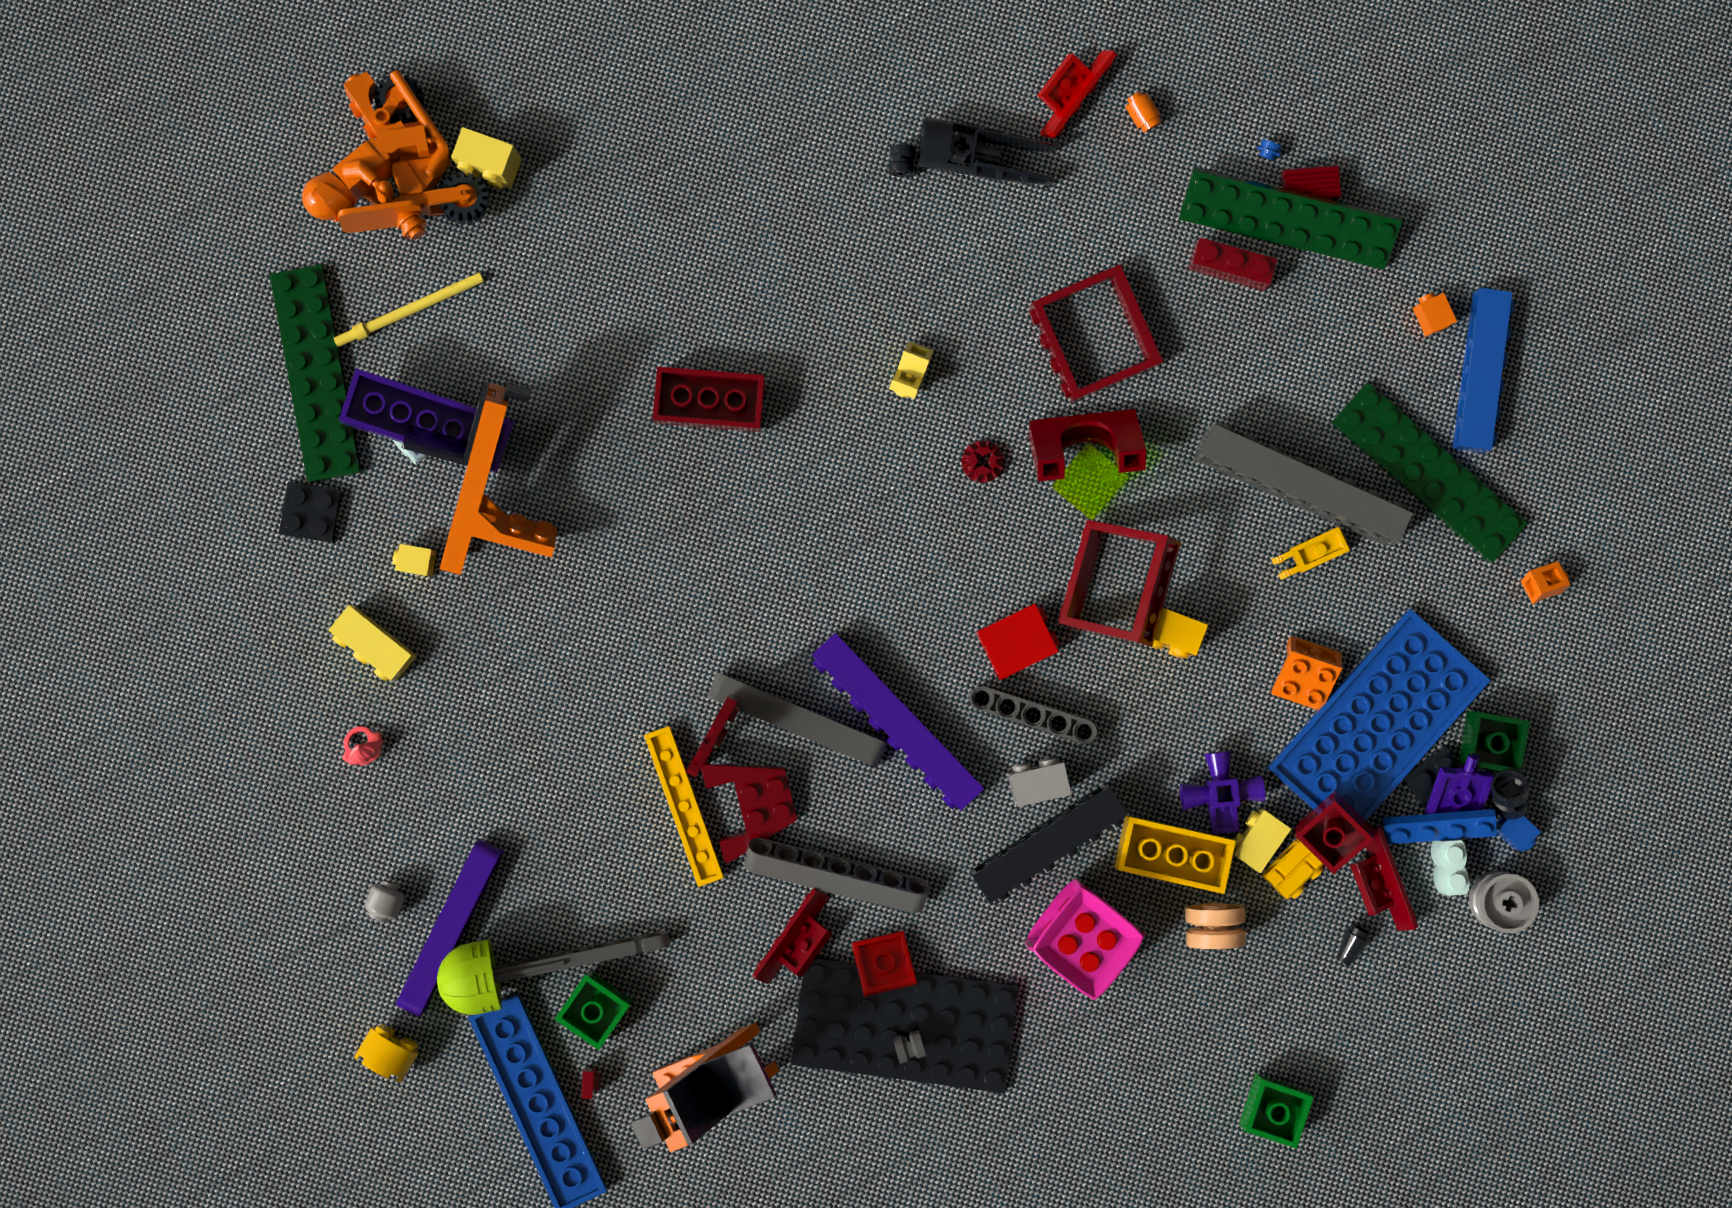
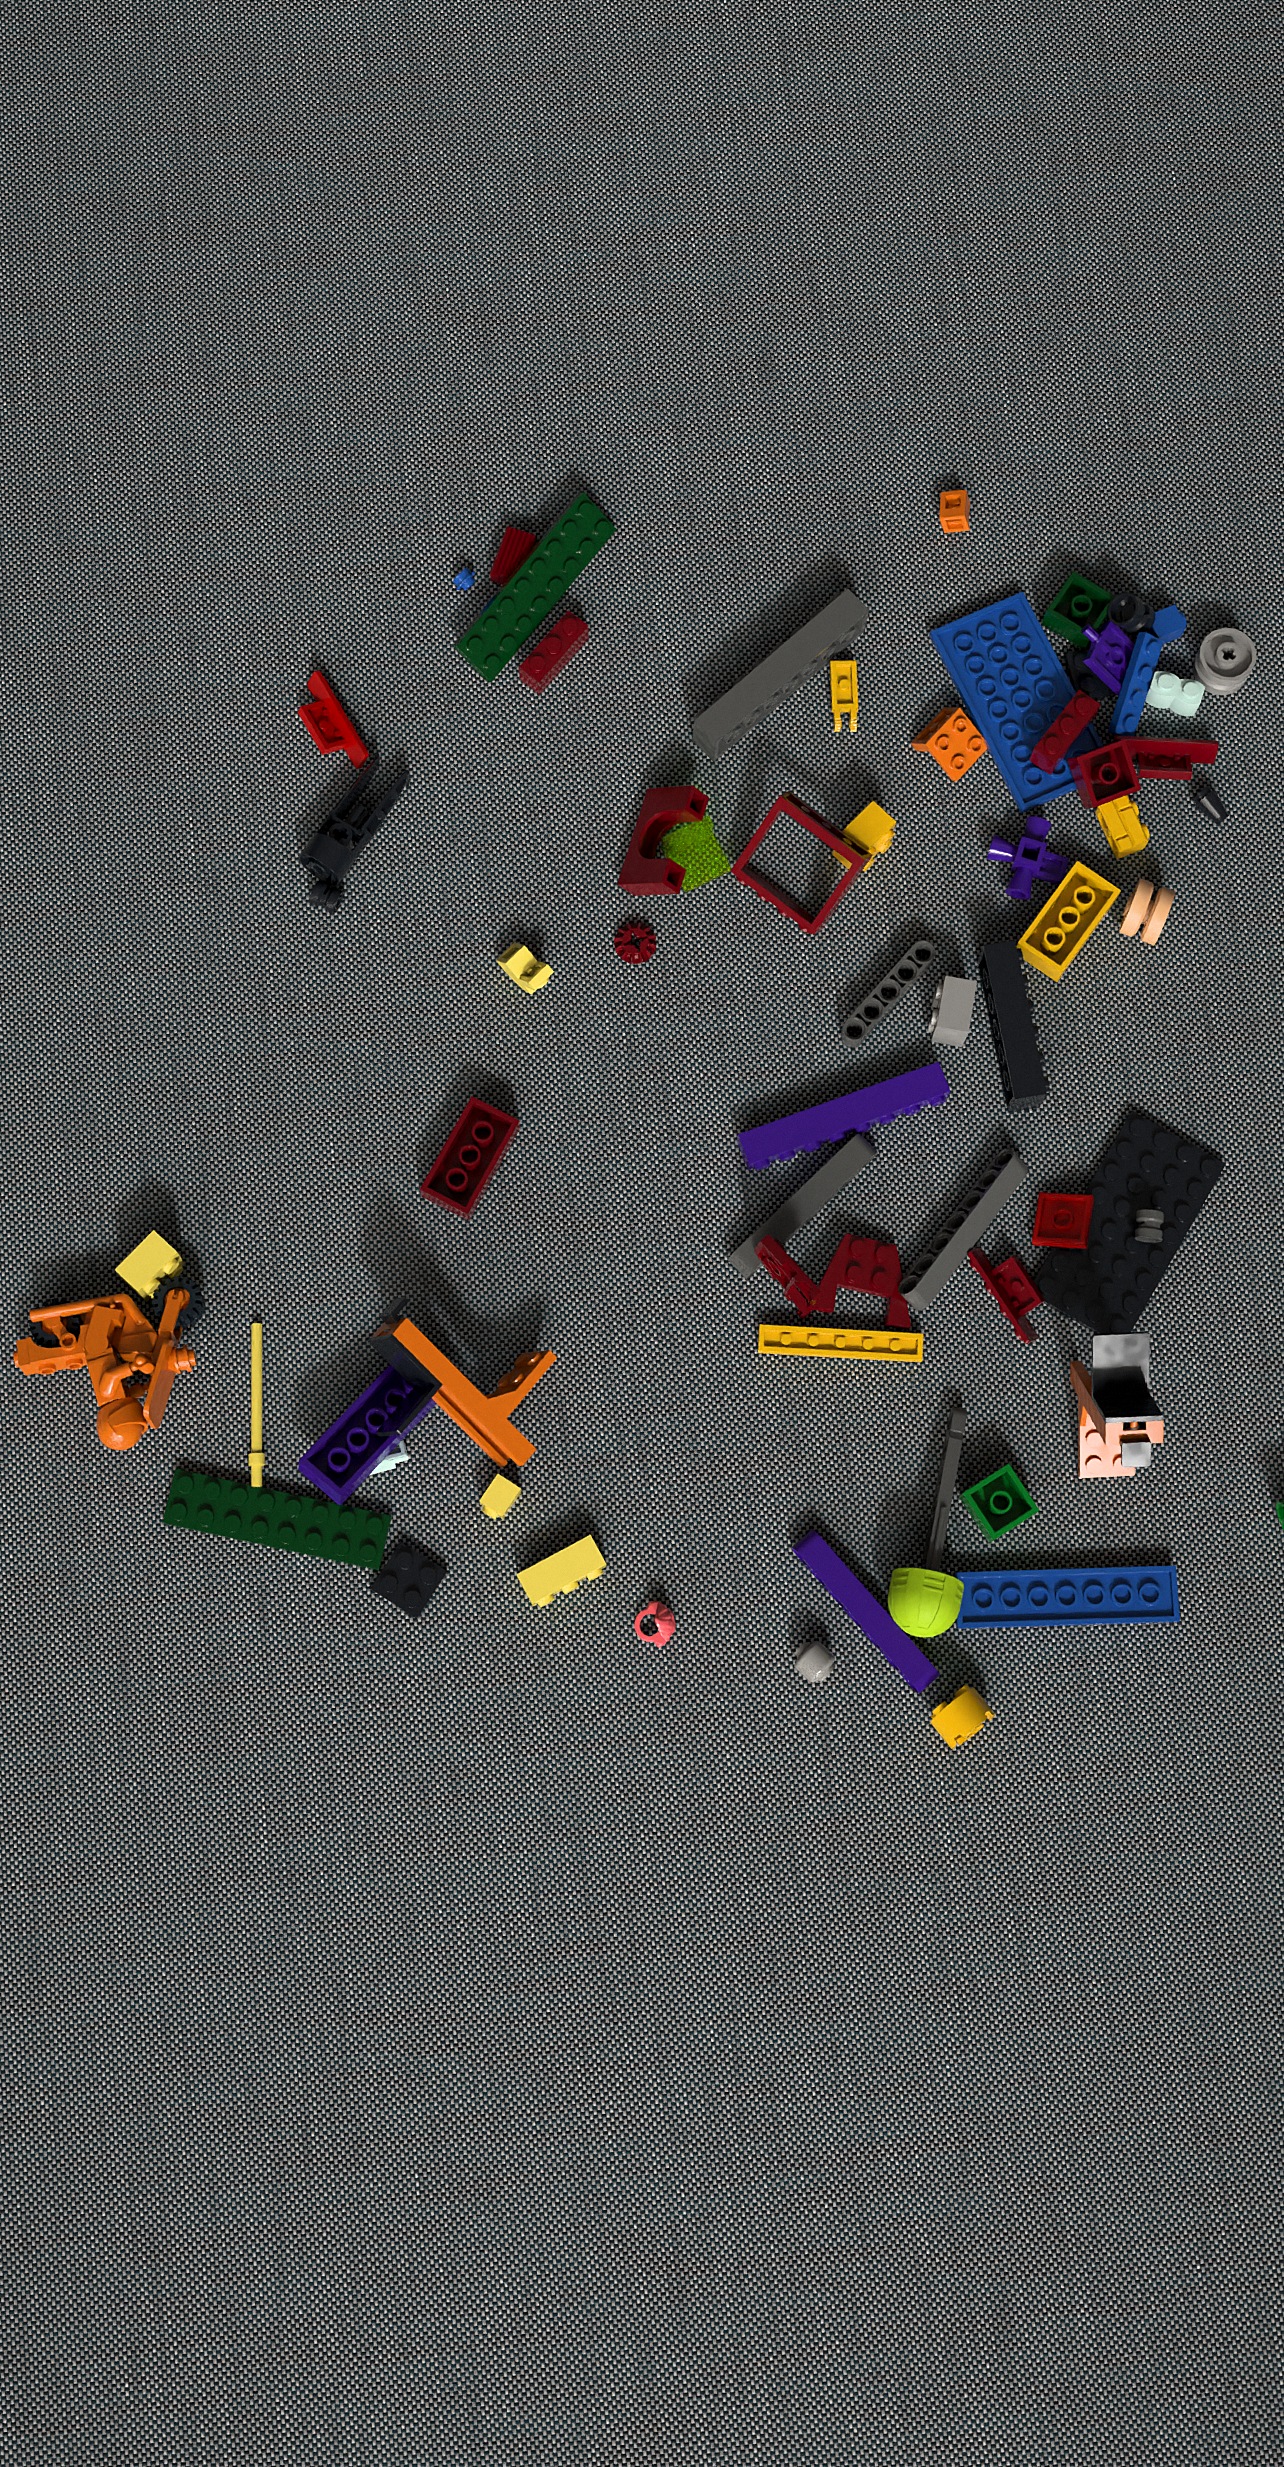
camera: 70 degrees left, 10 degrees down
(590, 1082) = (1066, 1538): dark red plate -> none
(1018, 641) = (815, 979): red brick -> none
(1084, 939) = (1112, 1026): dark pink piece -> none
(1133, 314) = (563, 756): dark red window -> none
(1143, 111) = (380, 670): orange brick -> none
(1259, 839) = (1084, 843): light yellow brick -> none
(1361, 778) = (1064, 732): none -> dark red brick
(1428, 473) = (814, 568): dark green plate -> none
(1434, 313) = (675, 503): orange brick -> none
(1483, 370) = (744, 484): blue brick -> none

